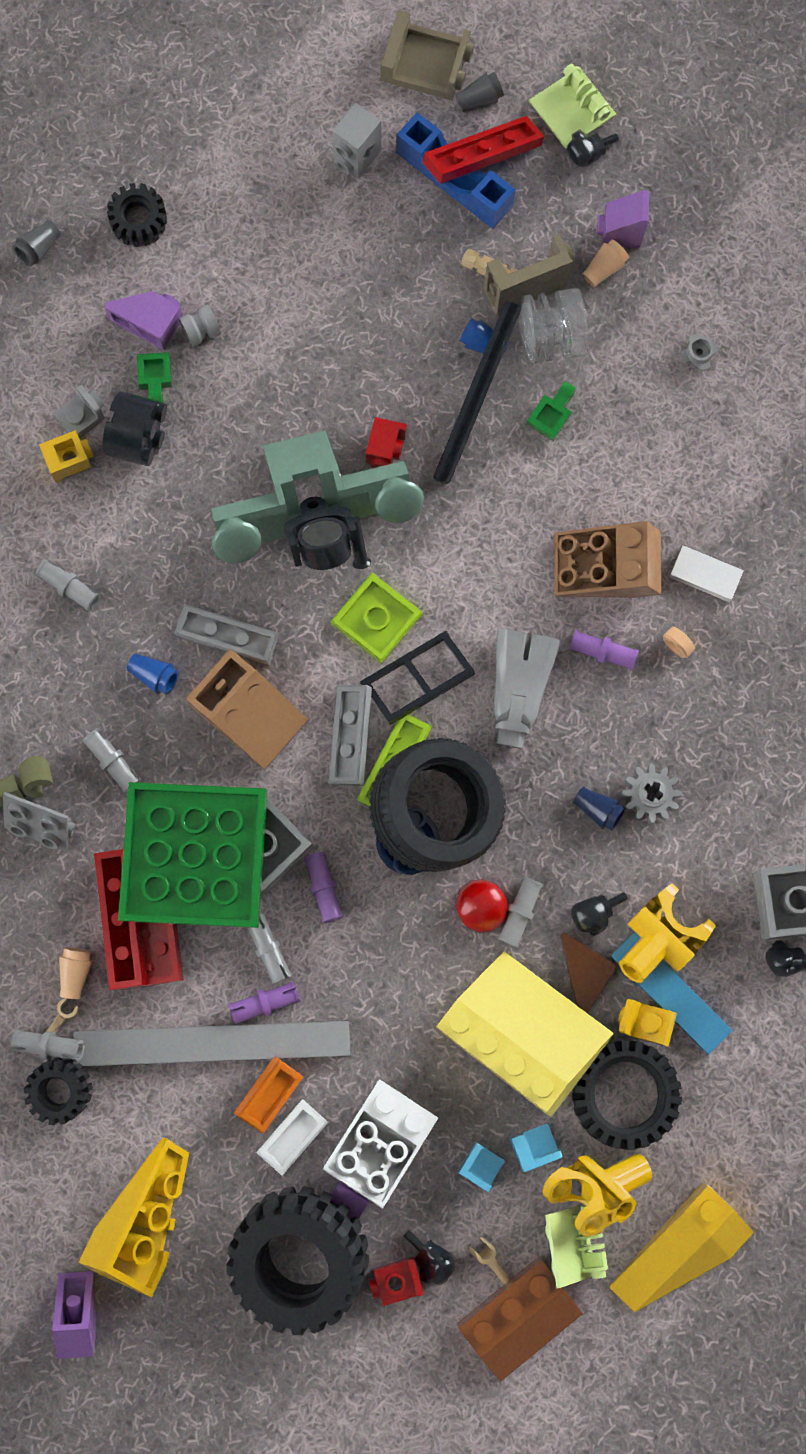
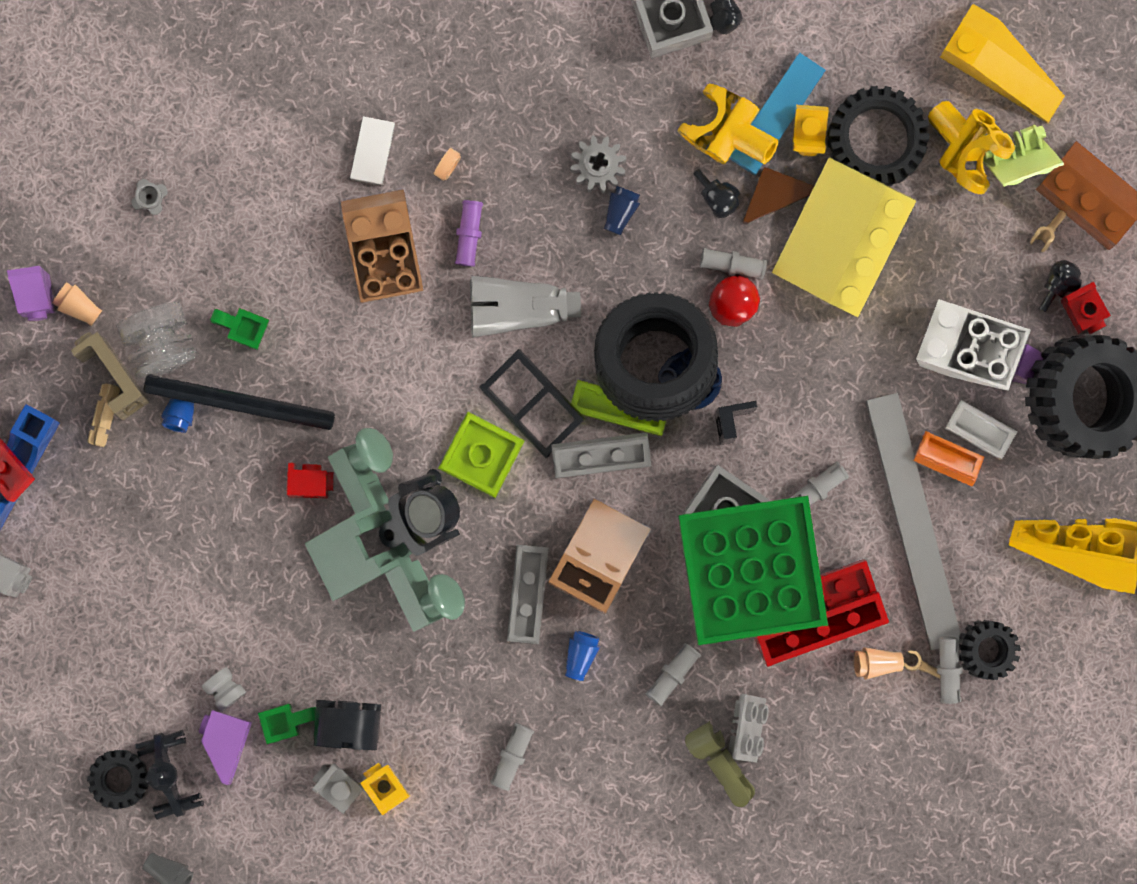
camera: 105 degrees left, 5 degrees up
(127, 252) = (163, 775): none -> black axle
(264, 1002) = (867, 481): medium lavender pin -> none
(323, 887) = (750, 449): medium lavender pin -> none
(354, 864) = (725, 420): none -> black panel
(481, 1166) = (970, 255): medium azure panel -> none
(535, 1147) = (943, 209): medium azure panel -> none

